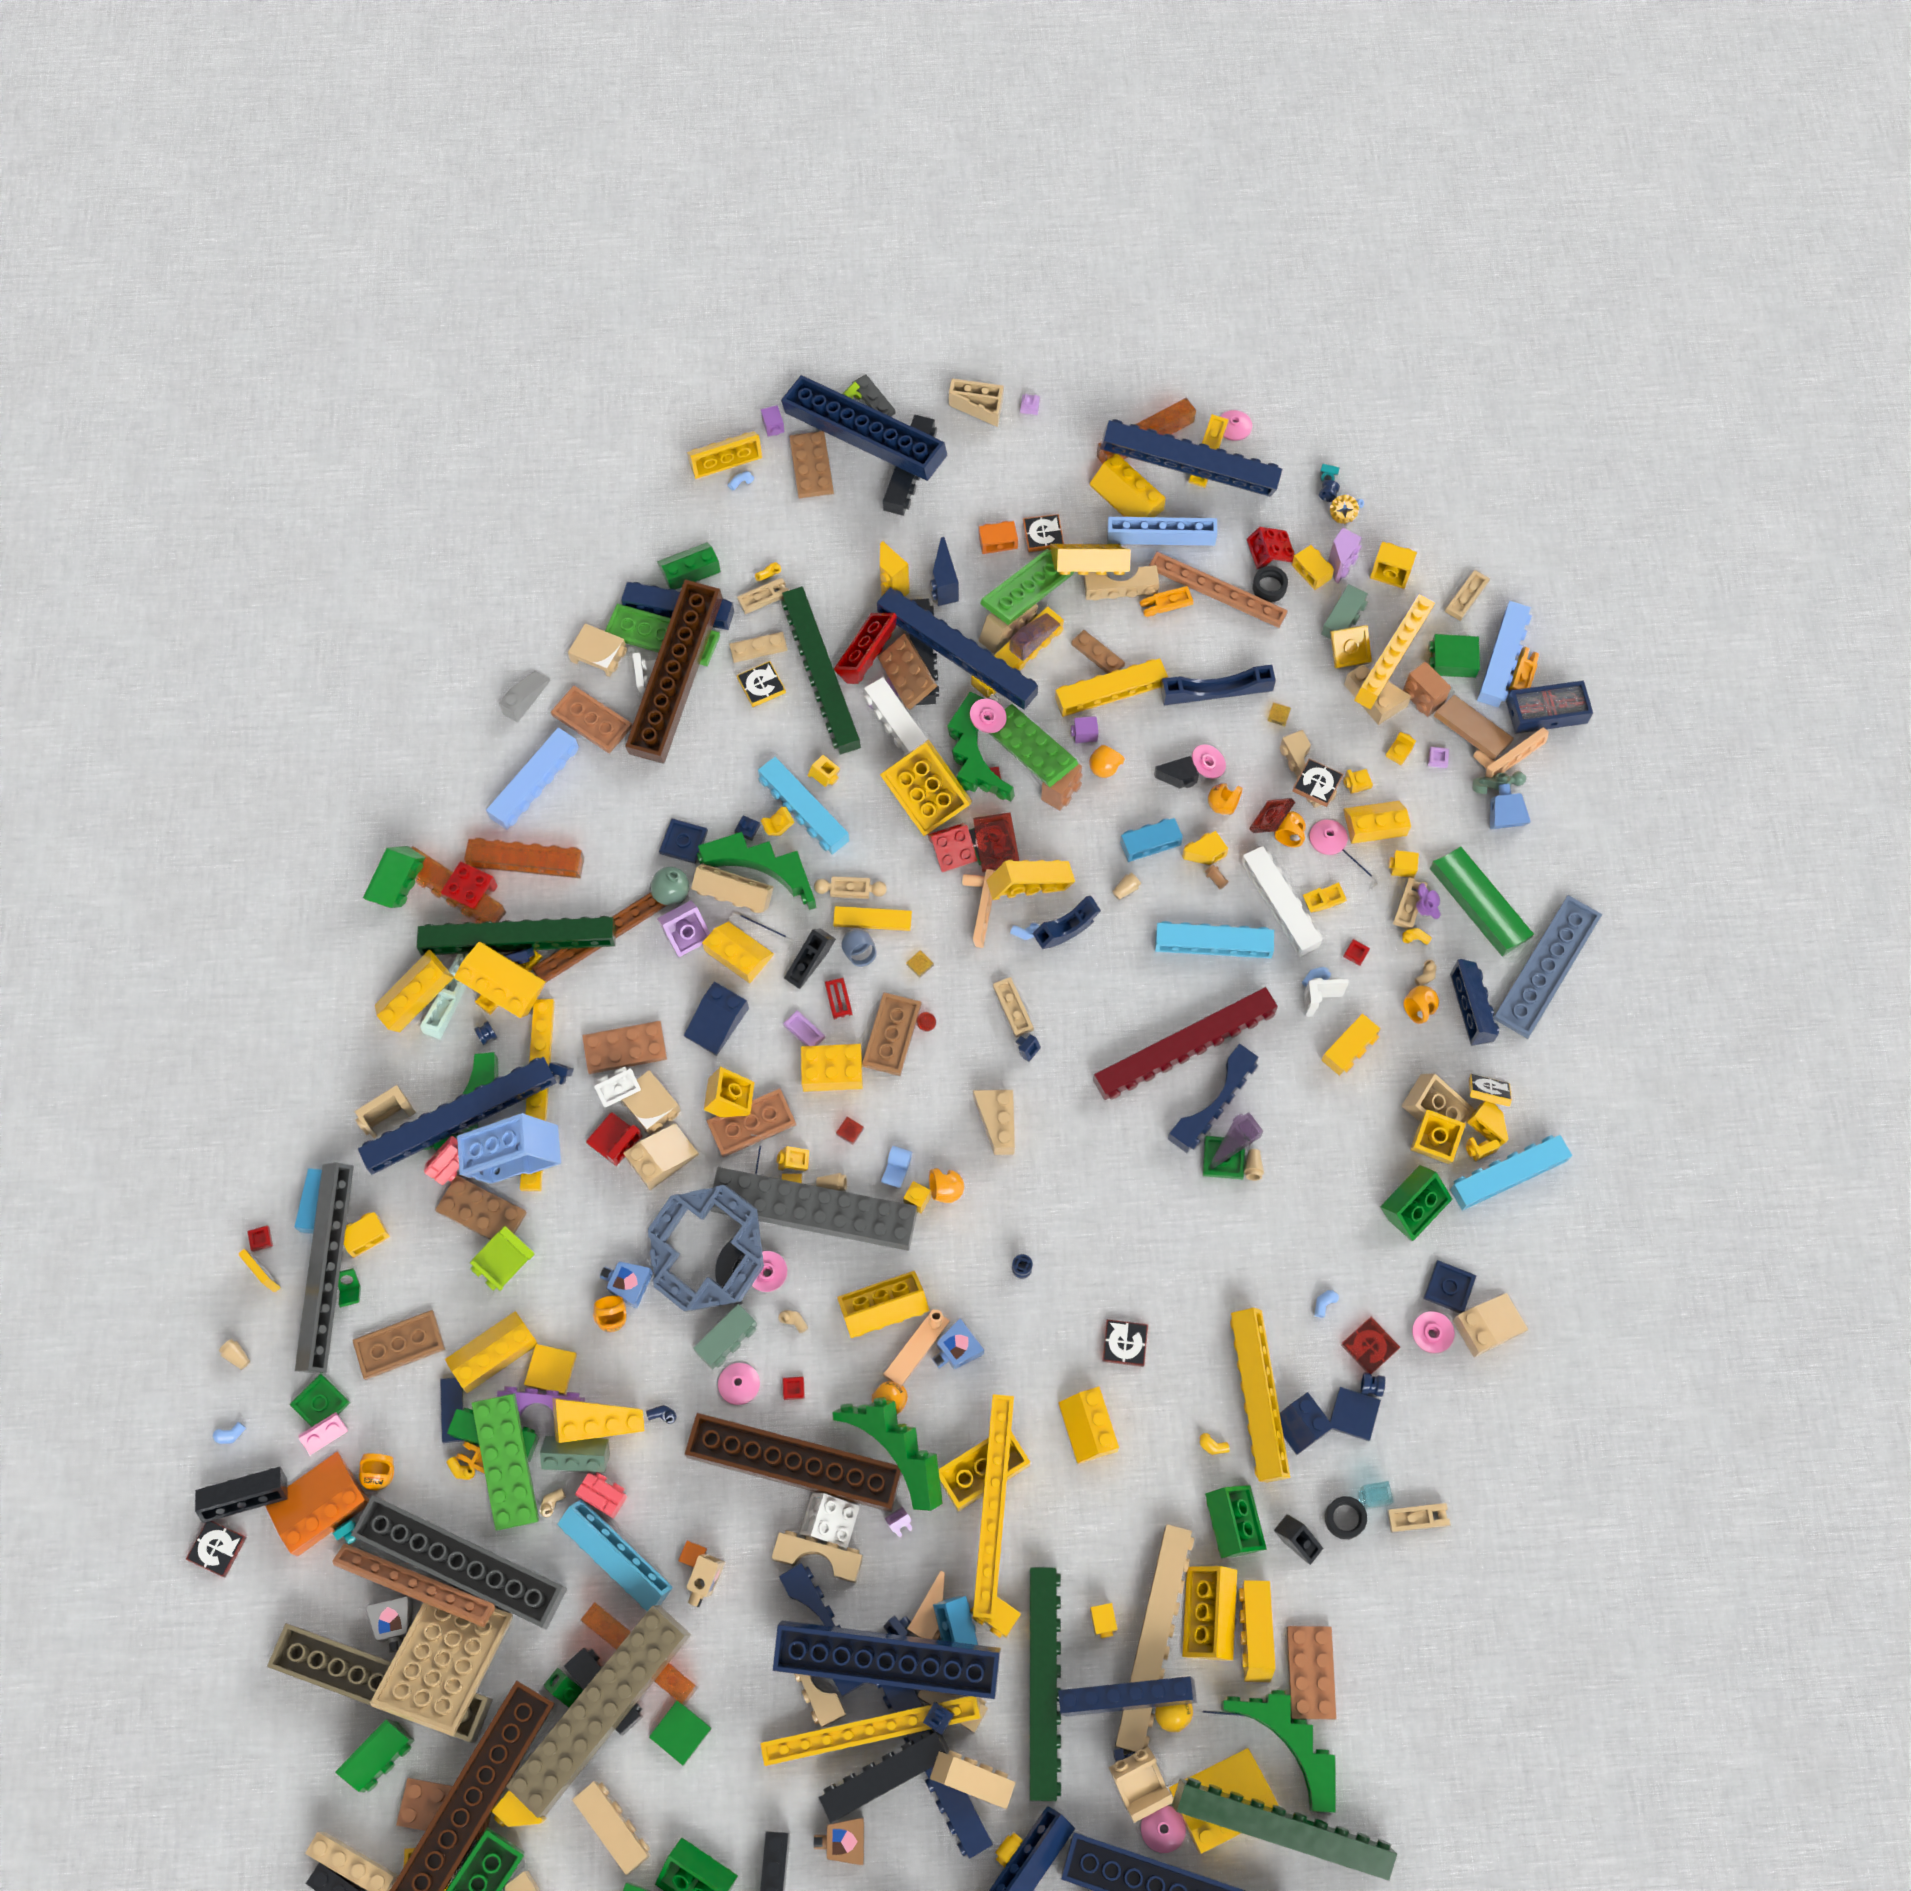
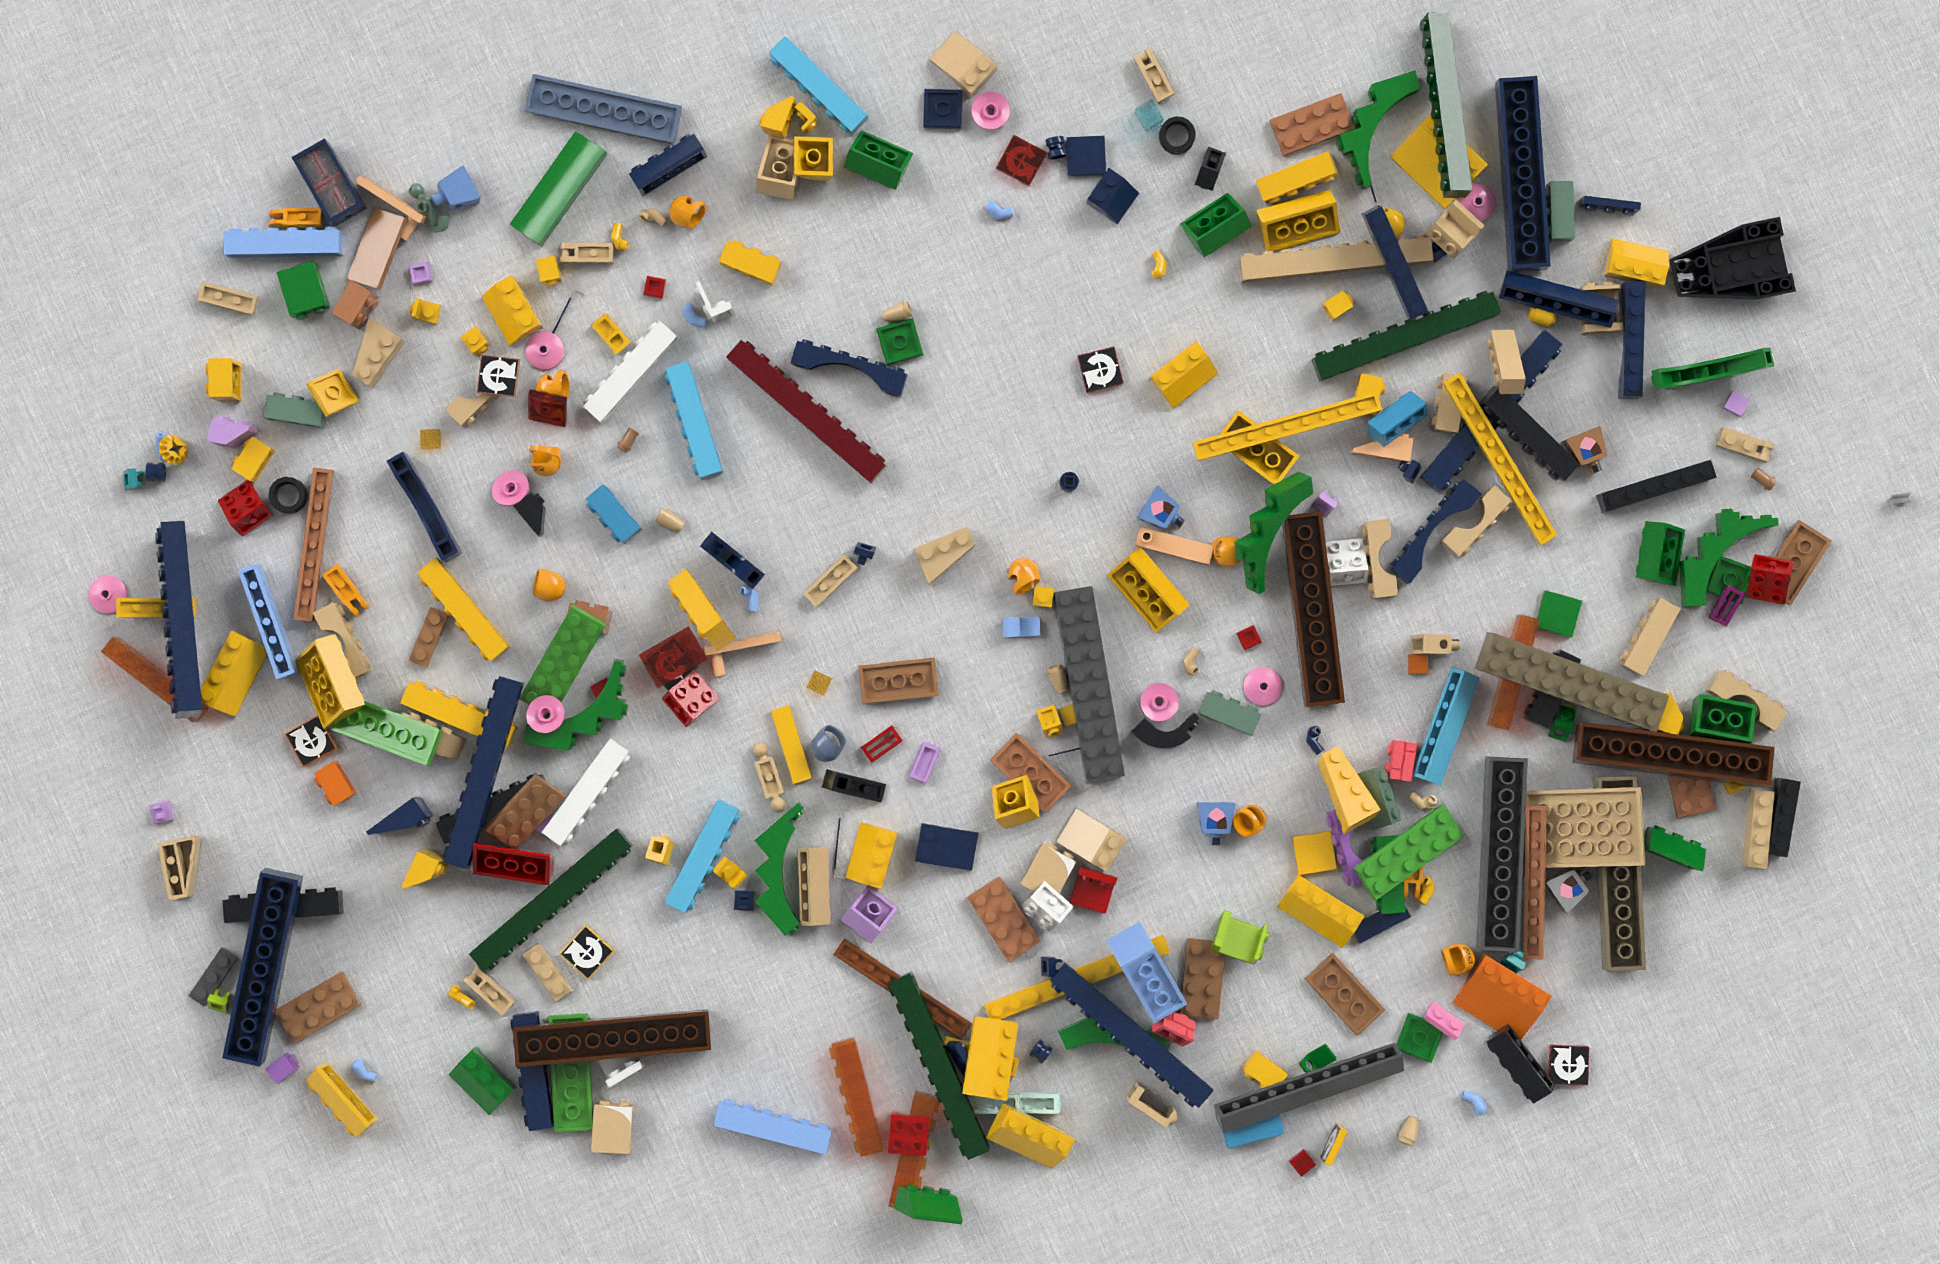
camera: 110 degrees left, 20 degrees up
(523, 695) = (687, 1177): light grey slope -> none
(591, 719) = (688, 1100): nougat plate -> none
(669, 886) = (834, 945): sand green cylinder -> none
(683, 841) = (780, 955): dark blue tile -> none
(746, 1240) = (1146, 726): sand blue plate -> none
(831, 1067) = (952, 721): yellow brick -> none
(850, 1130) = (1004, 681): clear red plate -> none
(887, 1659) = (1444, 464): dark blue brick -> none
(926, 787) = (643, 743): yellow slope -> none
(926, 1021) = (874, 654): clear red plate -> none
(938, 1718) = (1472, 405): dark blue tile -> none
(1032, 635) = (440, 703): slope -> none
(1085, 729) = (520, 618): medium lavender brick -> none
(1206, 850) = (605, 458): yellow slope -> none
(1240, 1135) = (880, 334): clear purple slope -> none
(1260, 1395) = (1103, 239): yellow brick -> none
(1394, 652) = (327, 346): yellow brick -> none
(1428, 902) = (581, 235): medium lavender plate -> none
(1490, 1090) = (749, 126): tile -> none

